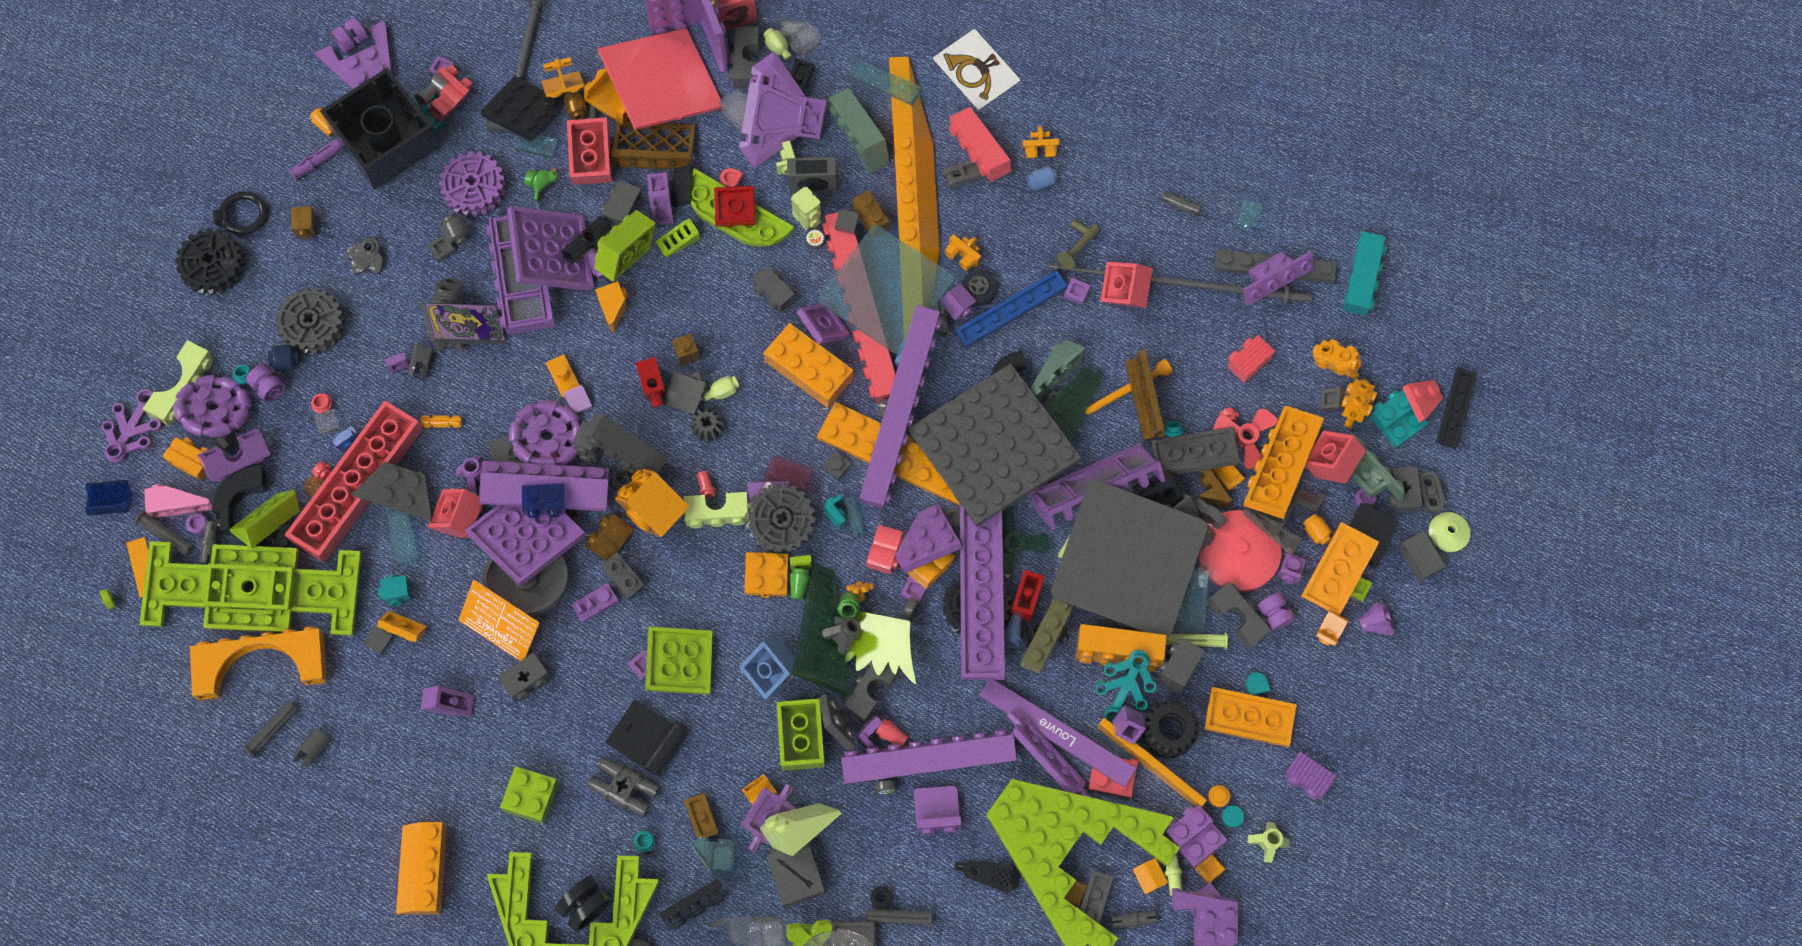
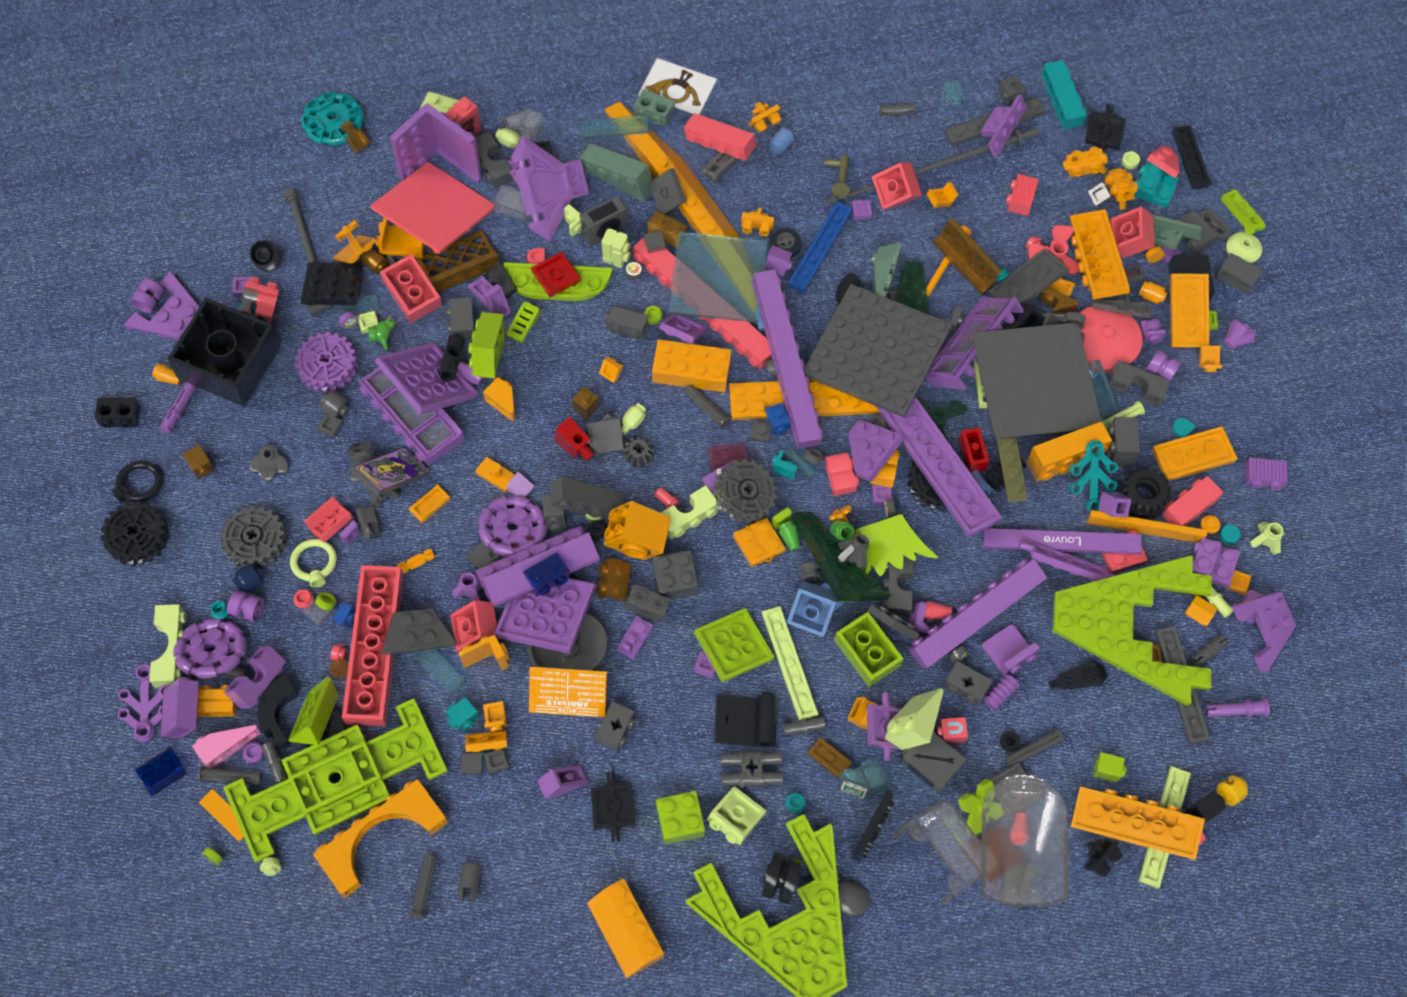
camera: 30 degrees left, 5 degrees down
(151, 636) = (270, 866): none -> yellowish green plate
(153, 448) = (179, 708): none -> medium lavender brick
(262, 133) = (118, 408): none -> black brick
(338, 416) = (325, 601): none -> lime tile
(343, 389) = (316, 577): none -> yellowish green piece
(385, 339) = (328, 519): none -> coral bracket
(401, 650) = (496, 761): none -> dark grey tile
(423, 607) = (495, 716): none -> light orange bracket
(449, 538) = (486, 647): none -> light orange bracket
(477, 751) = (613, 807): none -> black plate
(478, 48) = (265, 255): none -> black hat
(486, 372) = (429, 503): none -> light orange tile
(516, 153) = (348, 320): none -> medium lavender tile
(535, 162) = (367, 320): none -> yellowish green tile
(581, 822) = (736, 816): none -> yellowish green plate
(665, 564) = (675, 575): none -> dark grey brick
(697, 774) = (804, 726): none -> dark grey pin
(722, 707) = (789, 663): none -> yellowish green tile
(730, 328) = (610, 369): none -> light orange tile
(793, 629) = (810, 572): none -> dark grey wheel
(799, 414) = (707, 407): none -> dark grey axle
(806, 294) = (654, 314): none -> lime tile
(831, 856) = (952, 730): none -> coral brick
(857, 462) = (778, 419): none -> blue bracket
(870, 516) = (813, 455): none -> dark grey tile
(874, 807) = (963, 674): none -> dark grey brick
(891, 176) = (667, 191): none -> dark grey plate
(902, 845) = (1001, 692): none -> medium lavender piece
(940, 79) = (656, 106): none -> sand green brick
(1096, 454) = (956, 319): none -> dark grey bracket
(1167, 319) = (943, 197): none -> light orange bracket
(1213, 765) = (1192, 502): none -> coral brick
(1310, 240) = (1010, 89): none -> dark grey brick
(1347, 491) = (1154, 254): none -> light orange tile
(1383, 333) = (1105, 129): none -> black plate
(1390, 378) = (1130, 160): none -> yellowish green tile
(1471, 494) = (1243, 212): none -> lime plate

